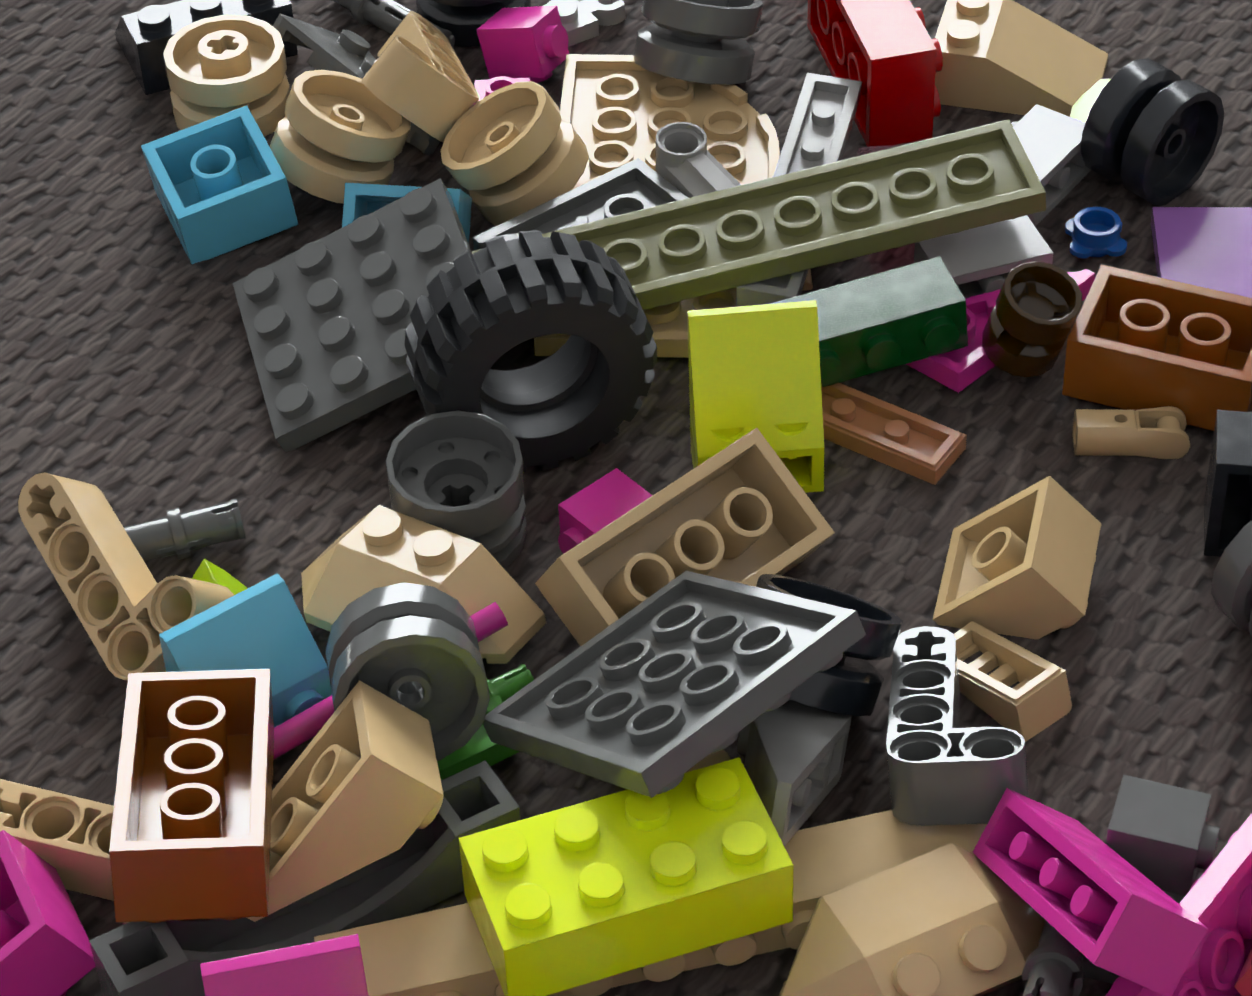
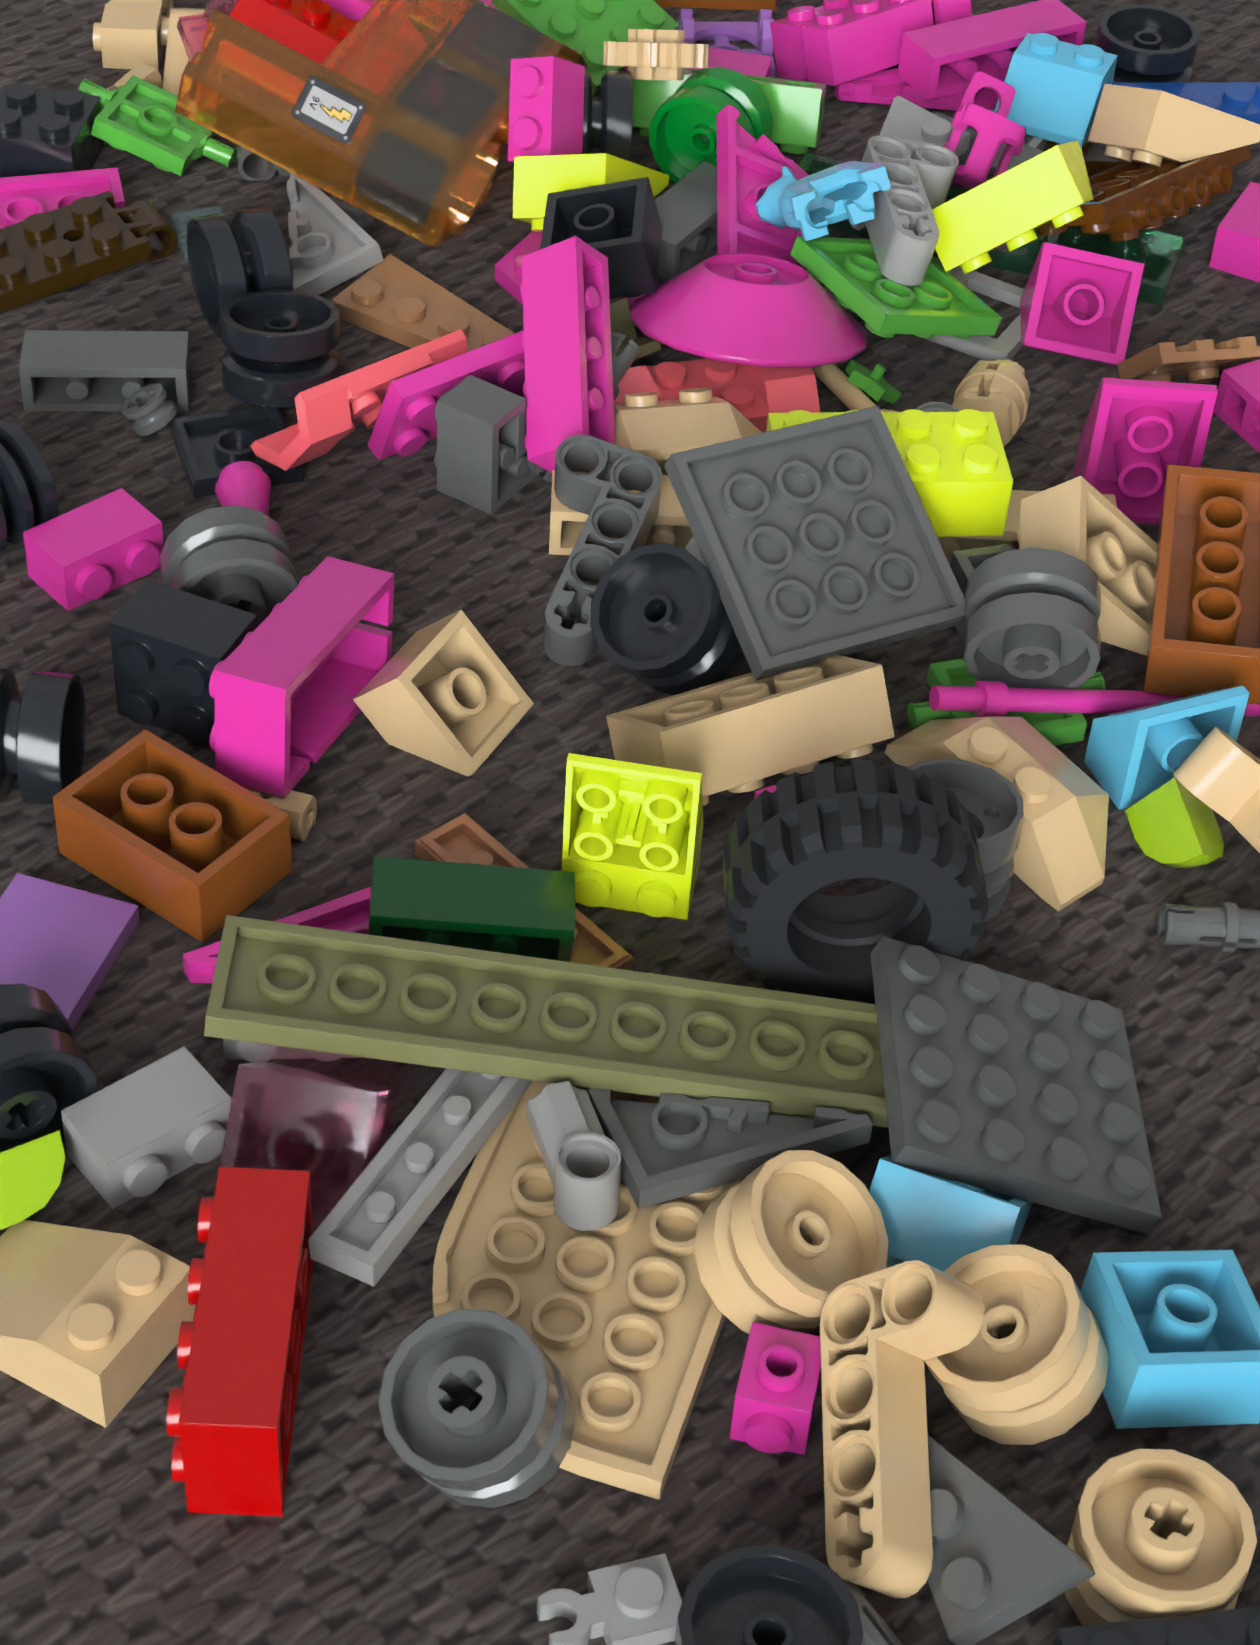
camera: 170 degrees left, 0 degrees up
(524, 42) = (715, 1501): dark pink brick -> none
(1030, 705) = (508, 602): tan slope -> none
(1031, 319) = (305, 859): dark brown wheel -> none
(1095, 233) = (134, 1035): blue plate -> none
(1153, 483) = (297, 676): none -> dark pink piece

